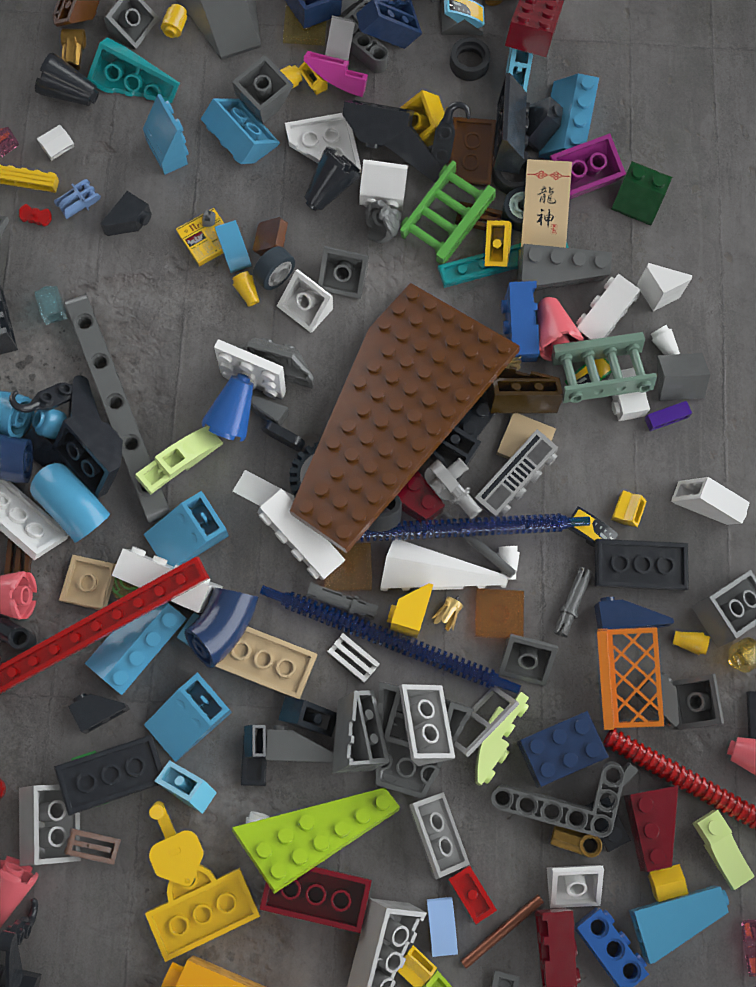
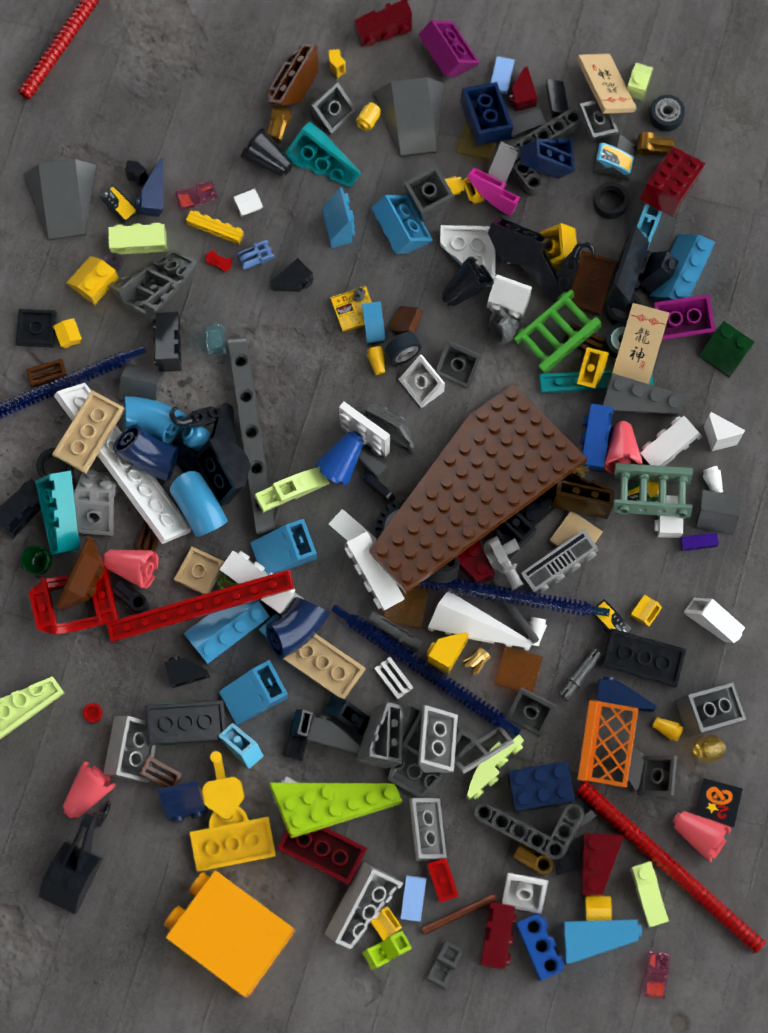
camera: 20 degrees right, 0 degrees up
(126, 878) = (183, 801): none -> dark blue slope

